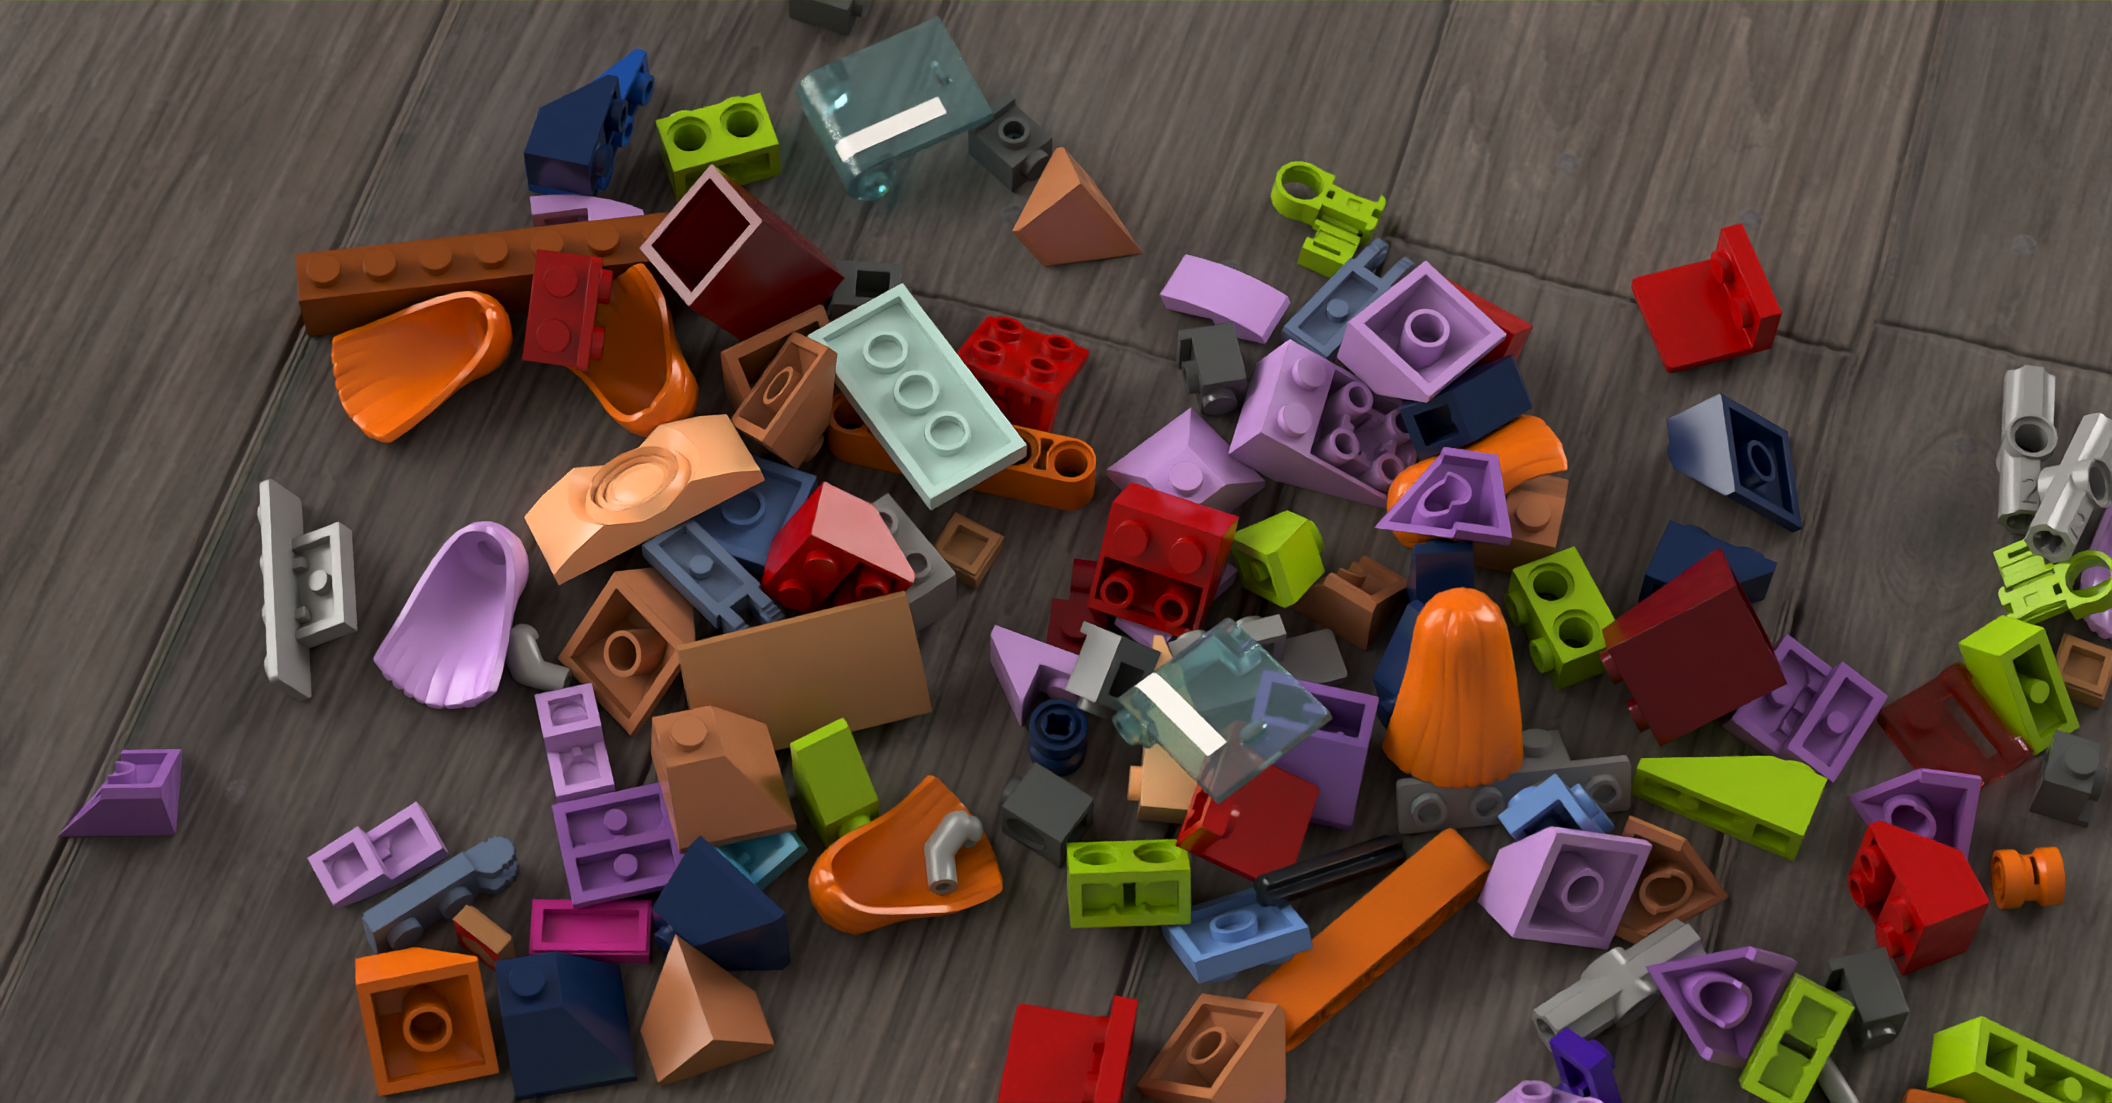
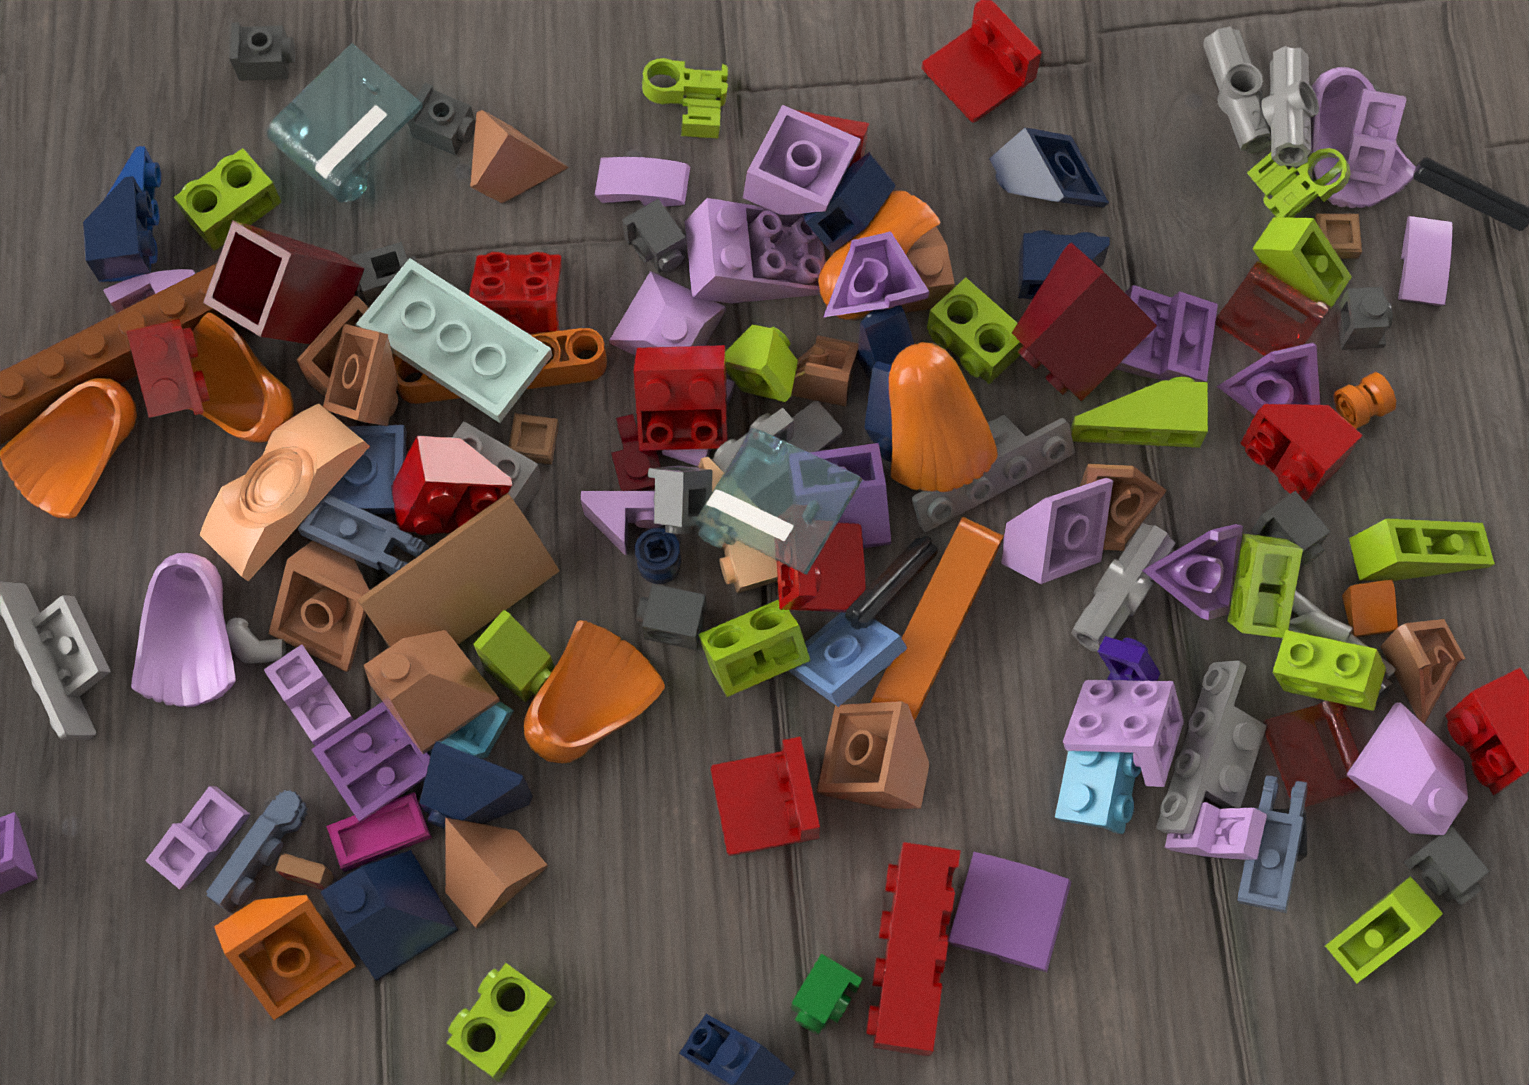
camera: 20 degrees left, 10 degrees up
(953, 831) = (609, 671): light grey arm -> none
(1347, 293) = (729, 154): sand blue hinge -> none
(1556, 806) = (1034, 483): medium blue bracket -> none

